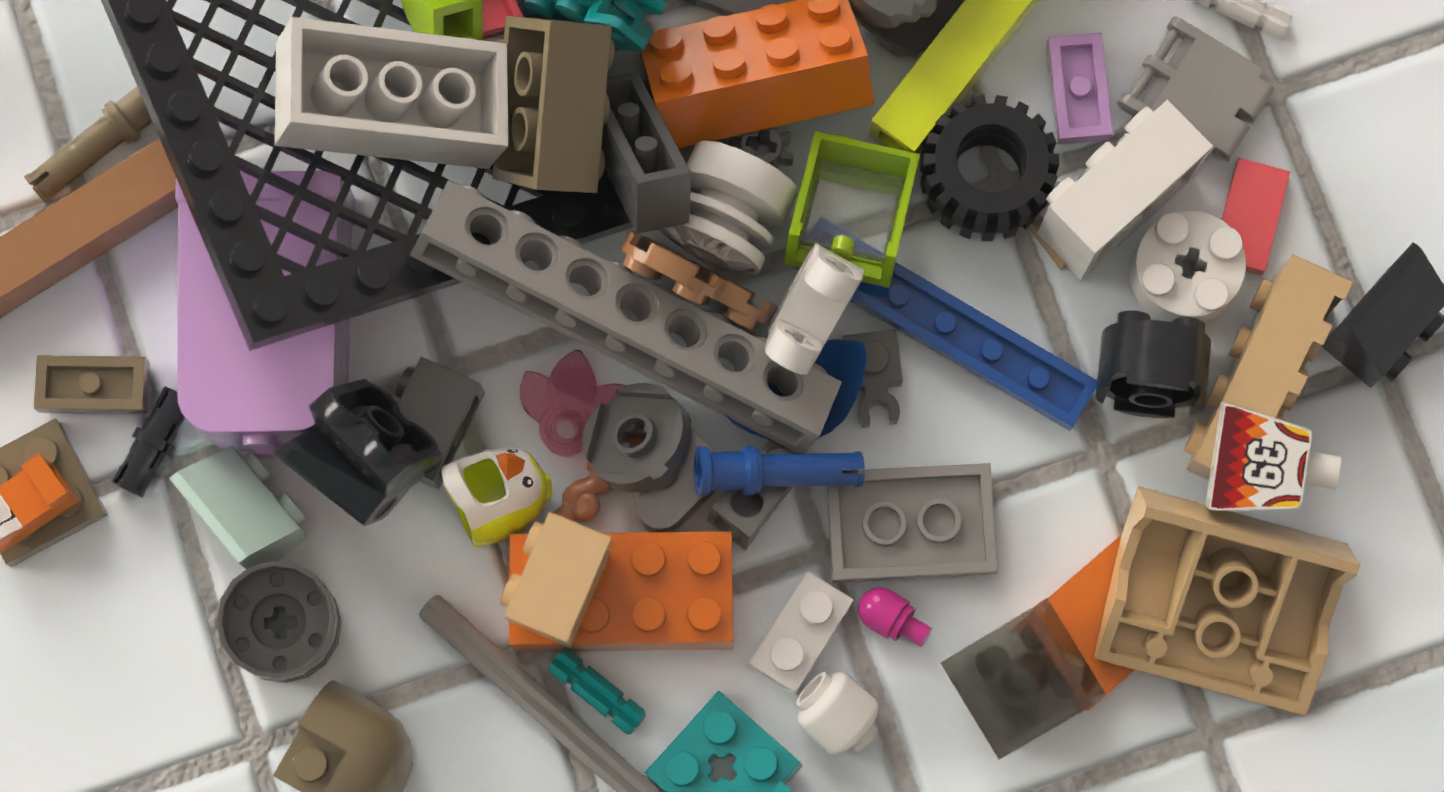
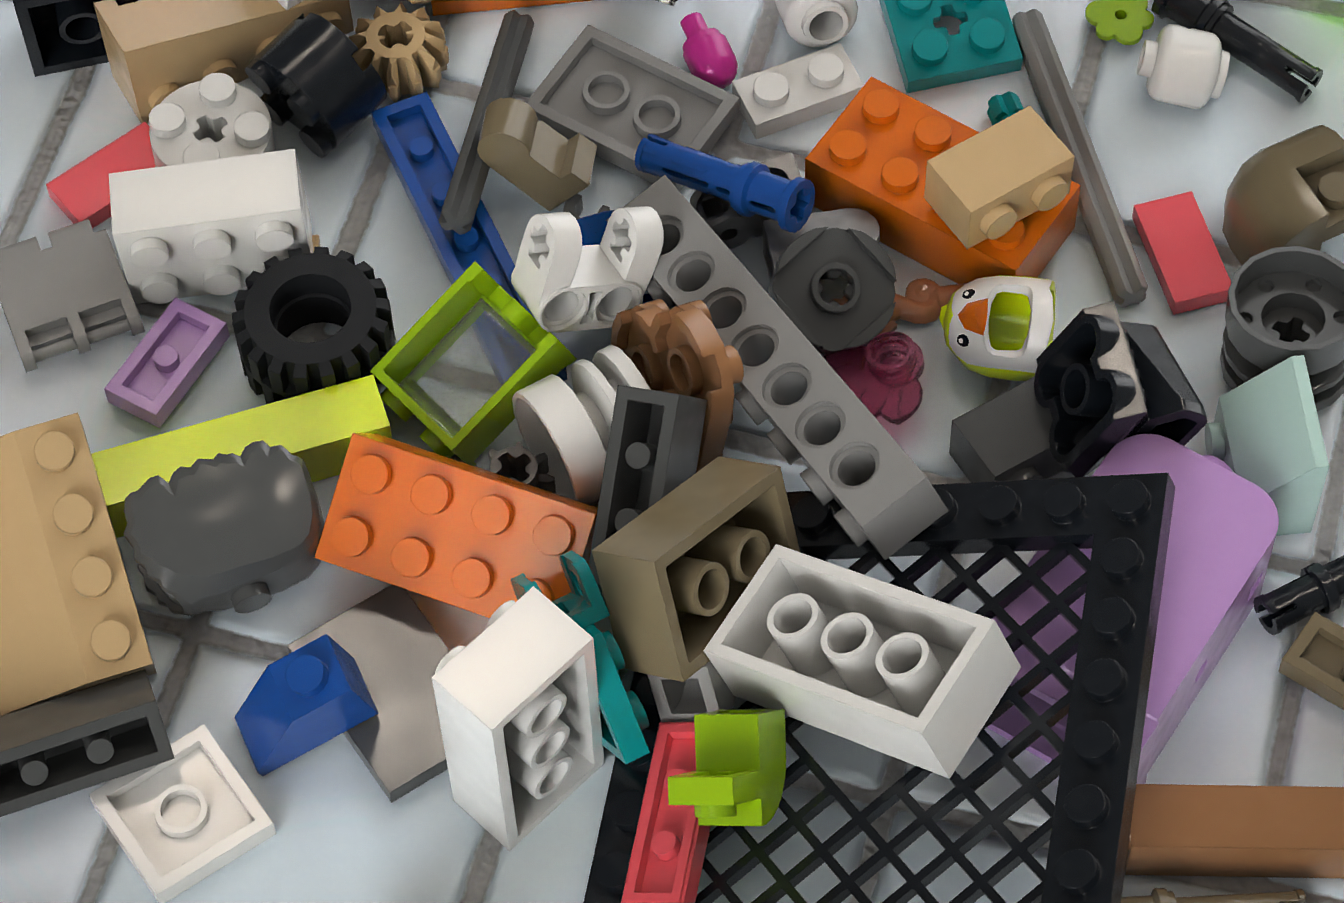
camera: 145 degrees left, 20 degrees down
(415, 672) = (1182, 252): none -> coral tile
(940, 414) = (534, 153): none -> dark tan leg
(1005, 430) = (498, 82): none -> dark grey axle
(1105, 439) = (403, 50): none -> tan gear

